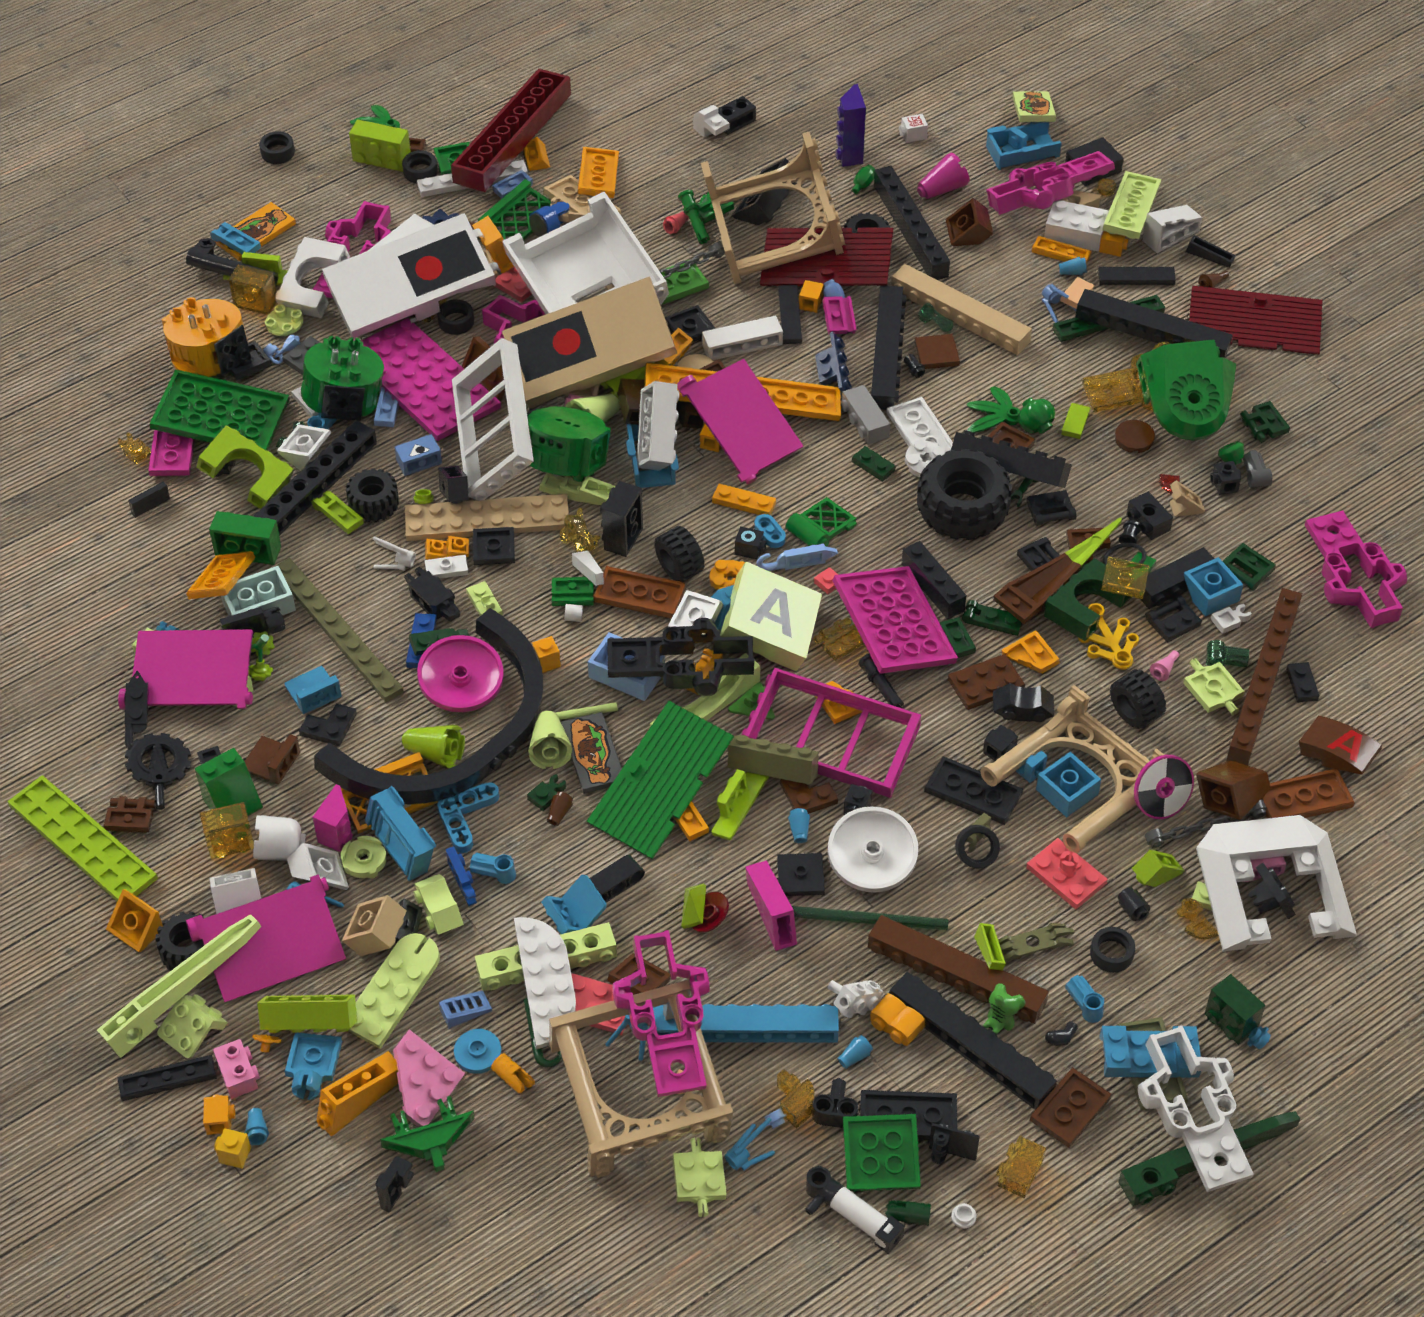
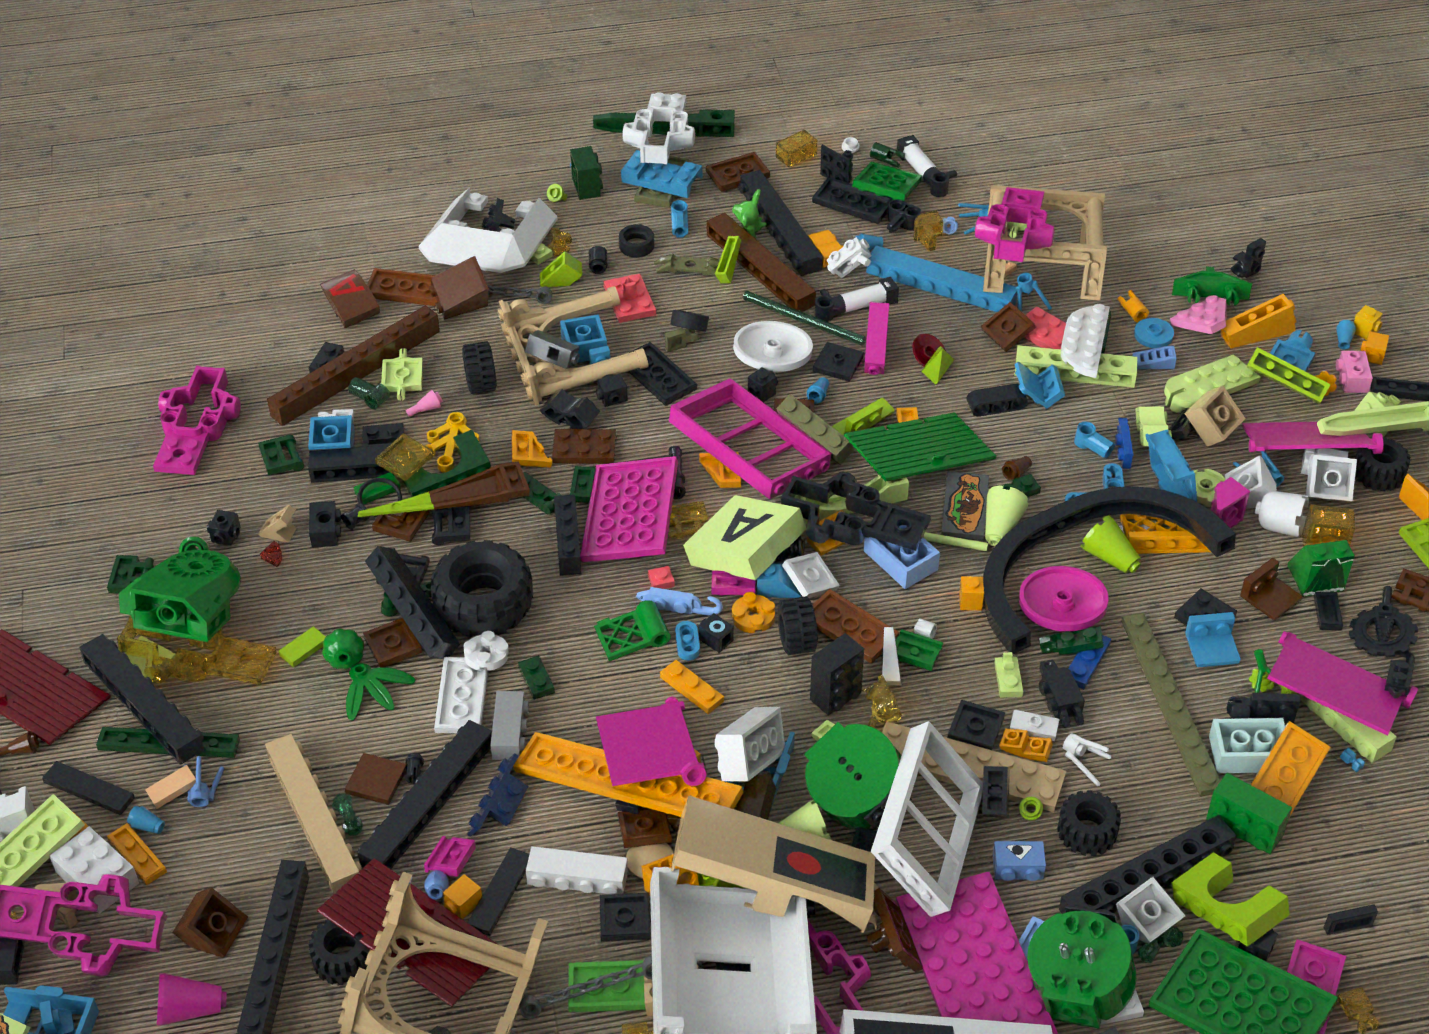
camera: 155 degrees left, 5 degrees down
(338, 512) = (1134, 827): lime plate -> none
(798, 979) = (884, 292): none -> piece
(1061, 1037) = (711, 208): black arm -> none
(1081, 740) = (552, 349): none -> dark grey brick
(1134, 436) = (262, 610): reddish brown tile -> none
(1153, 776) = (534, 301): piece -> none
(1254, 985) = (556, 193): none -> lime plate
(1257, 473) = (188, 526): dark grey piece -> none

